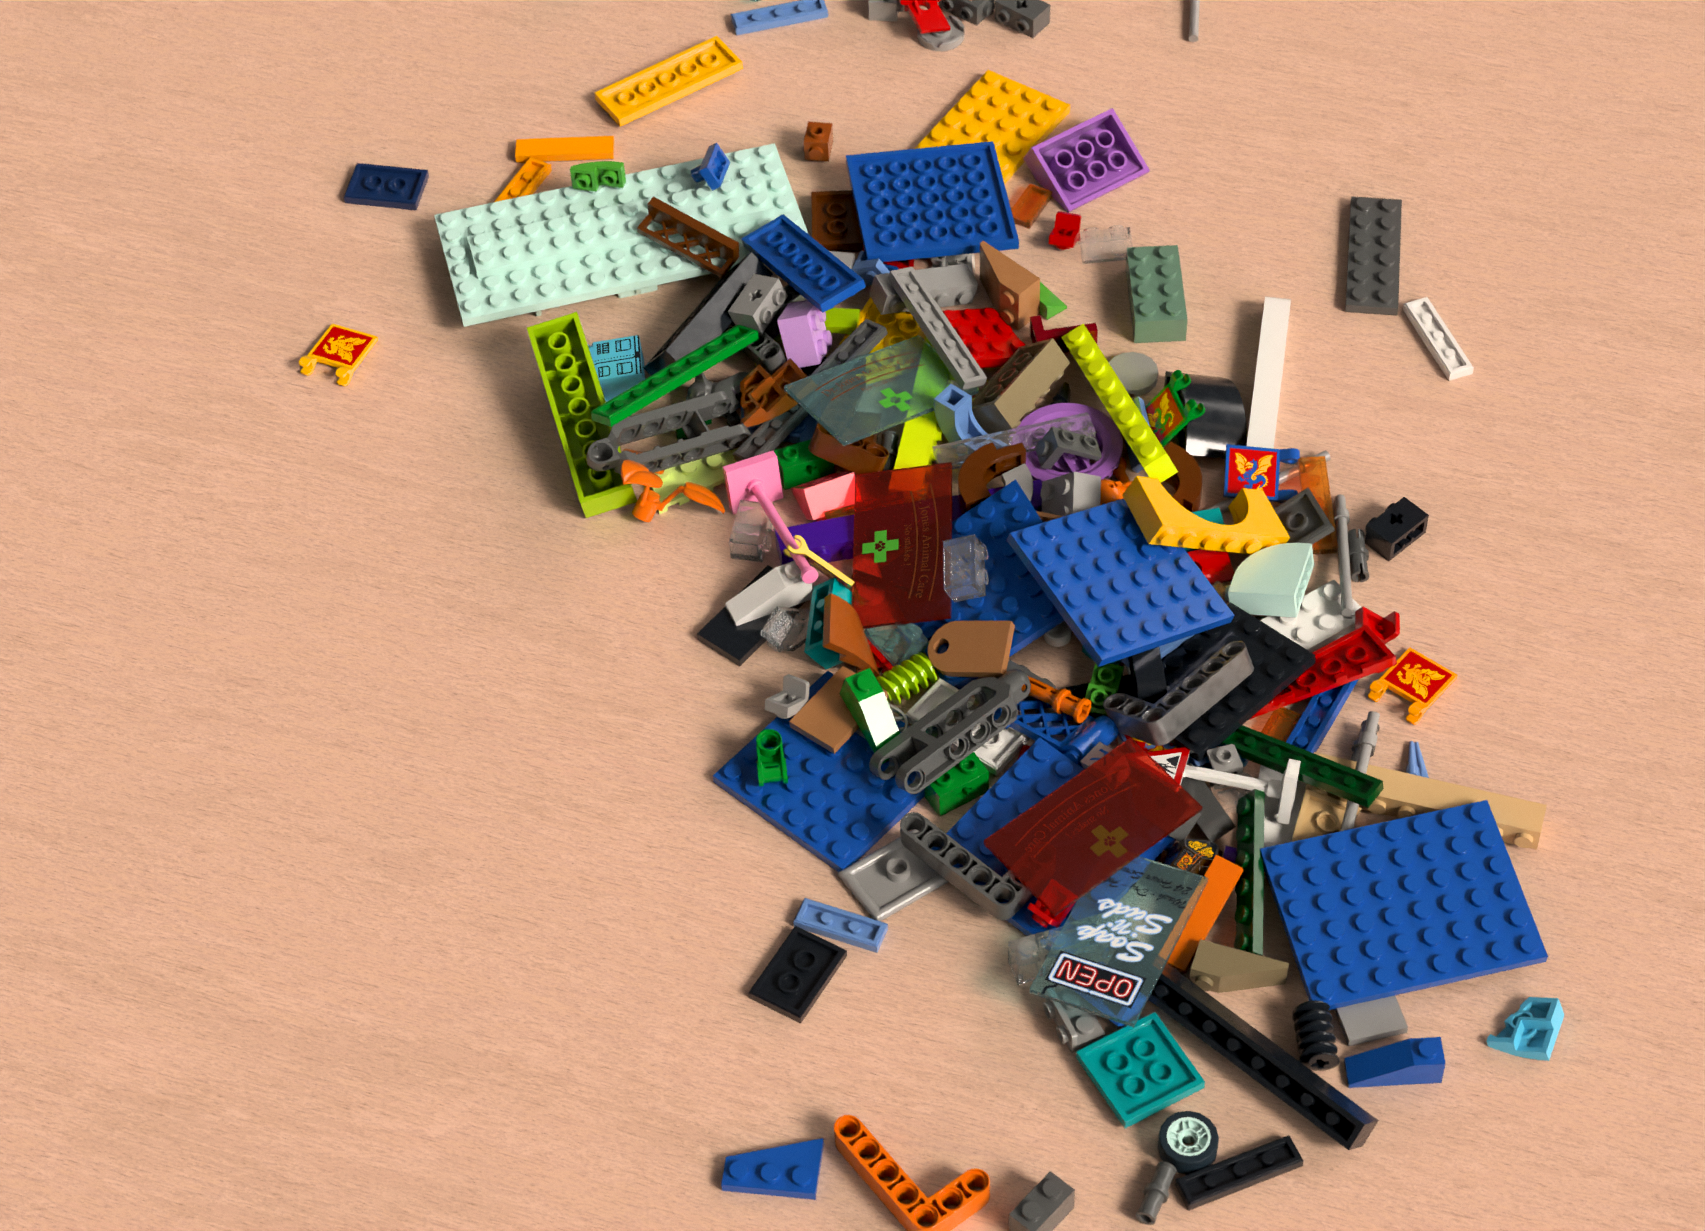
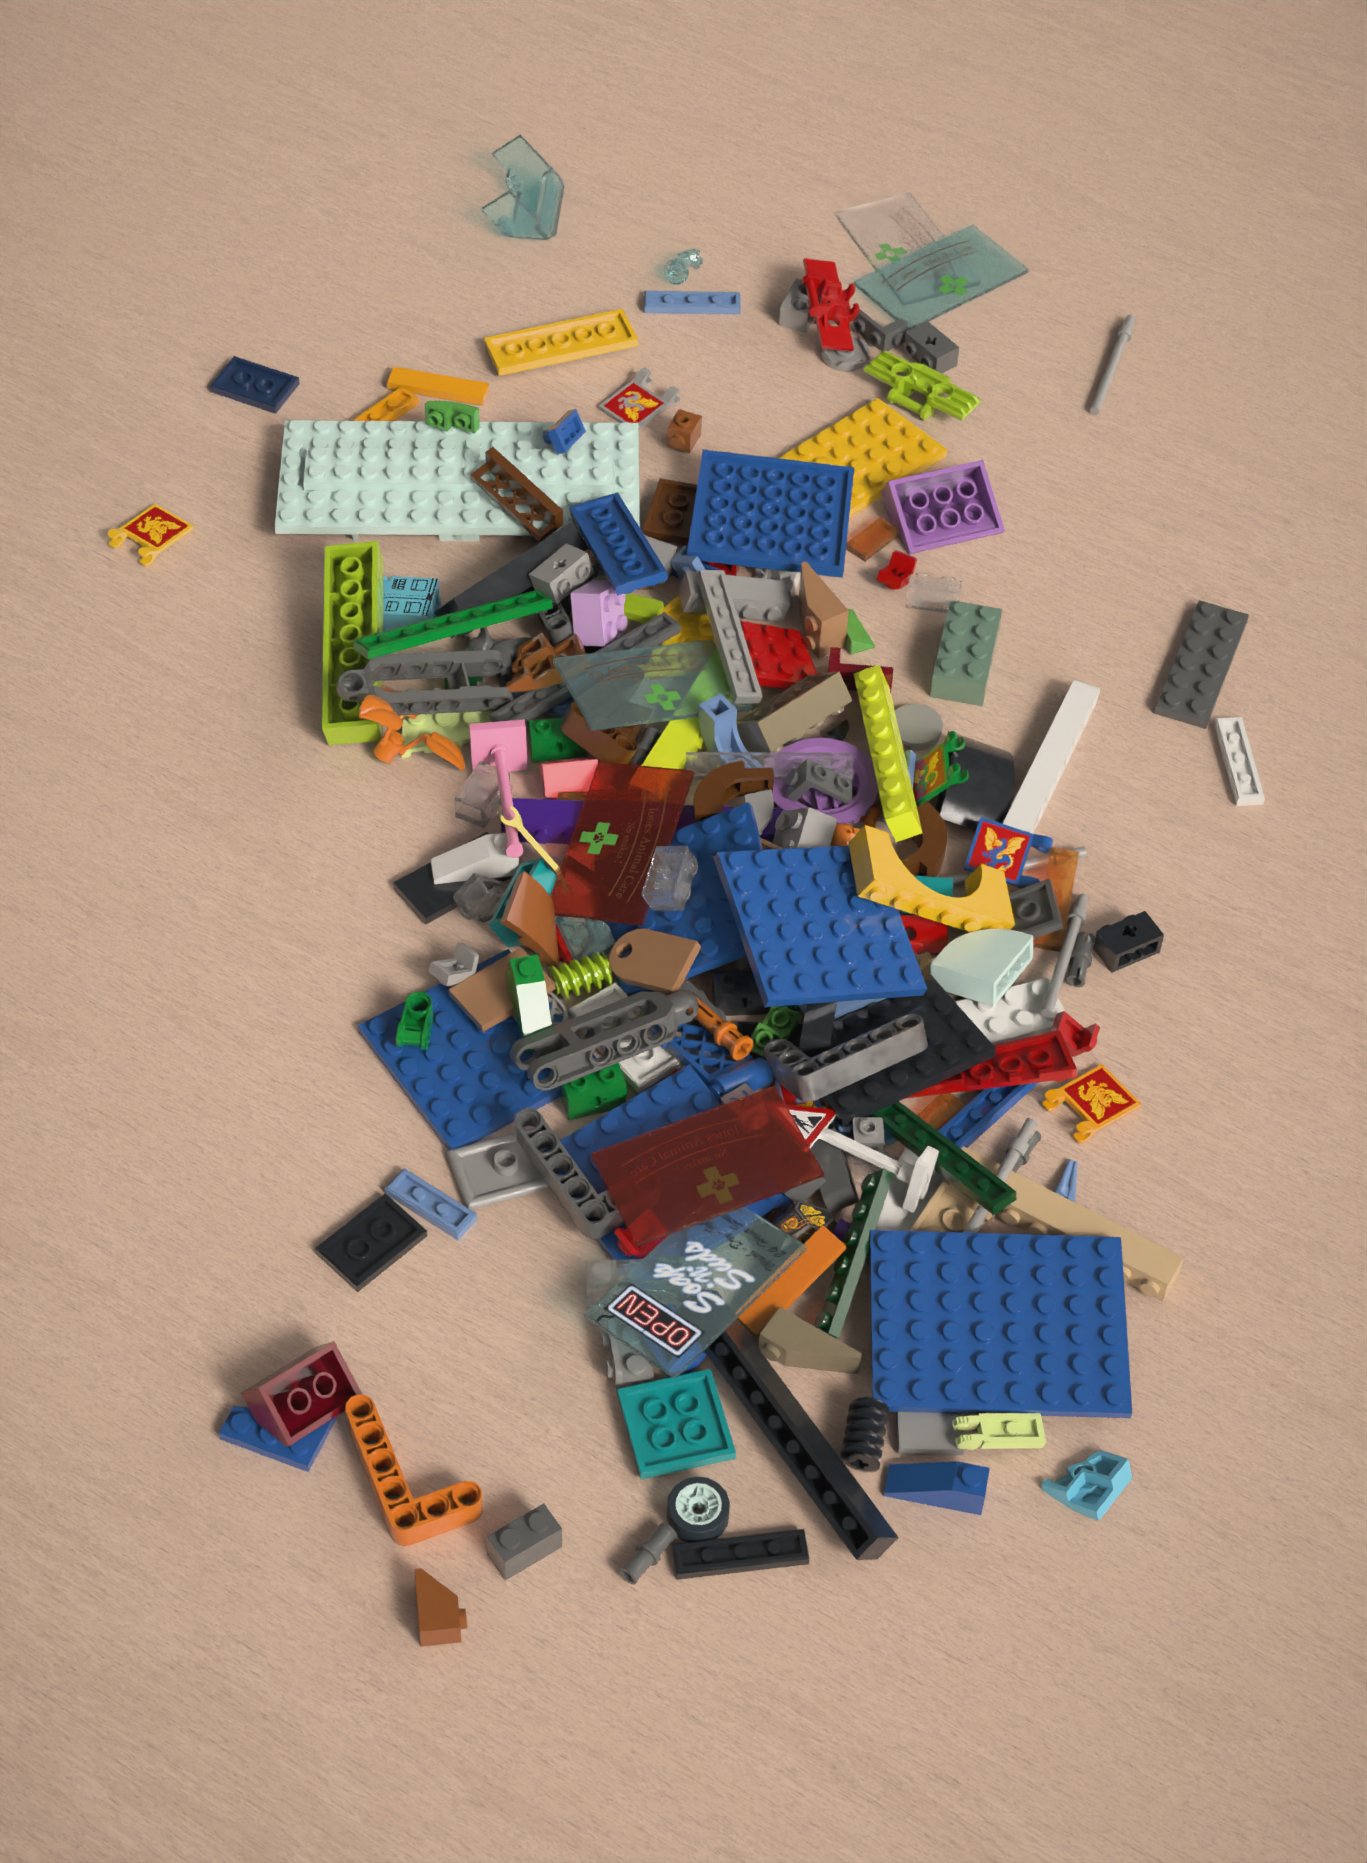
camera: 10 degrees right, 0 degrees up
(762, 125) = (637, 403): none -> flag
(789, 1128) = (302, 1394): none -> dark red slope
(1027, 43) = (924, 380): none -> lime piece
(1060, 659) = (737, 993): none -> black brick
(1436, 1002) = (1000, 1431): none -> yellowish green hinge

